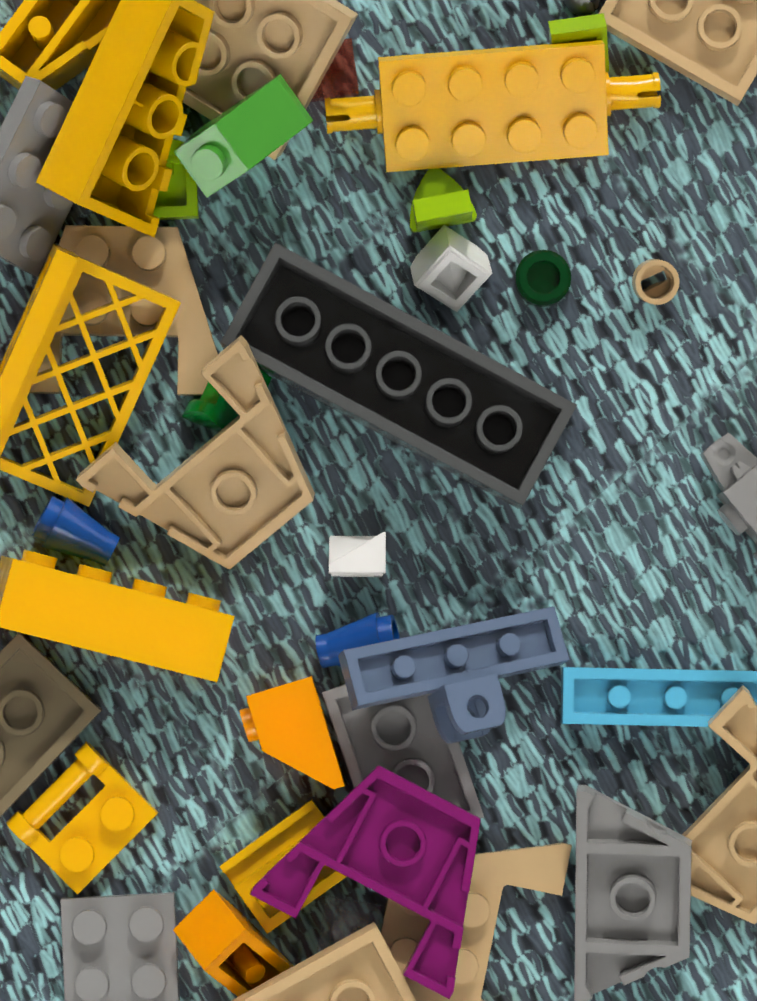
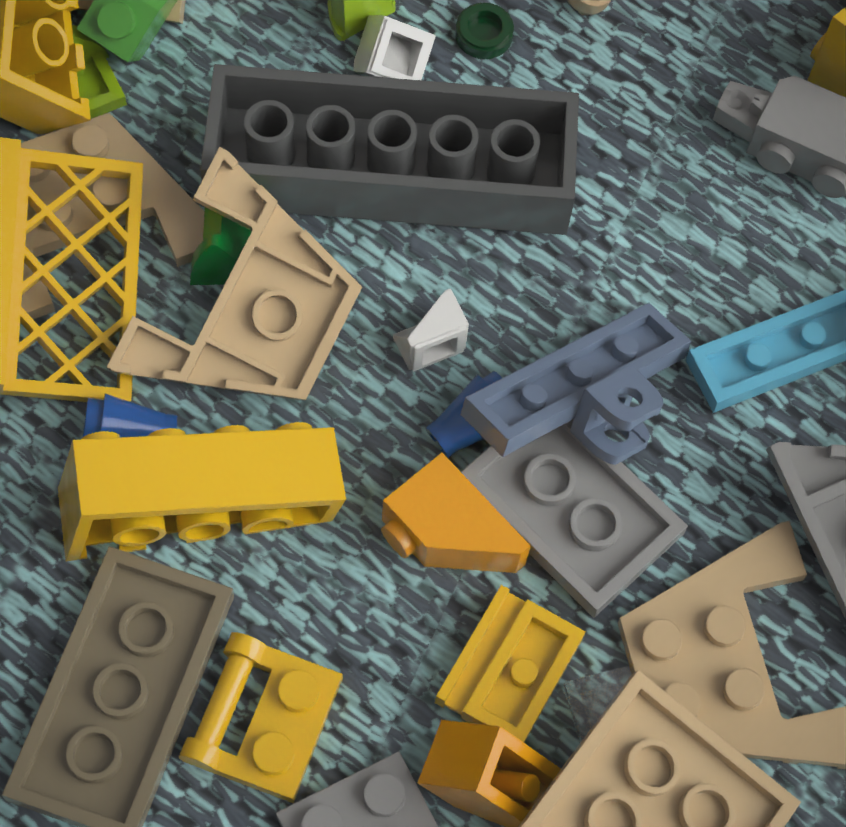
camera: 20 degrees left, 20 degrees down
(400, 846) = (624, 582): magenta wing -> none

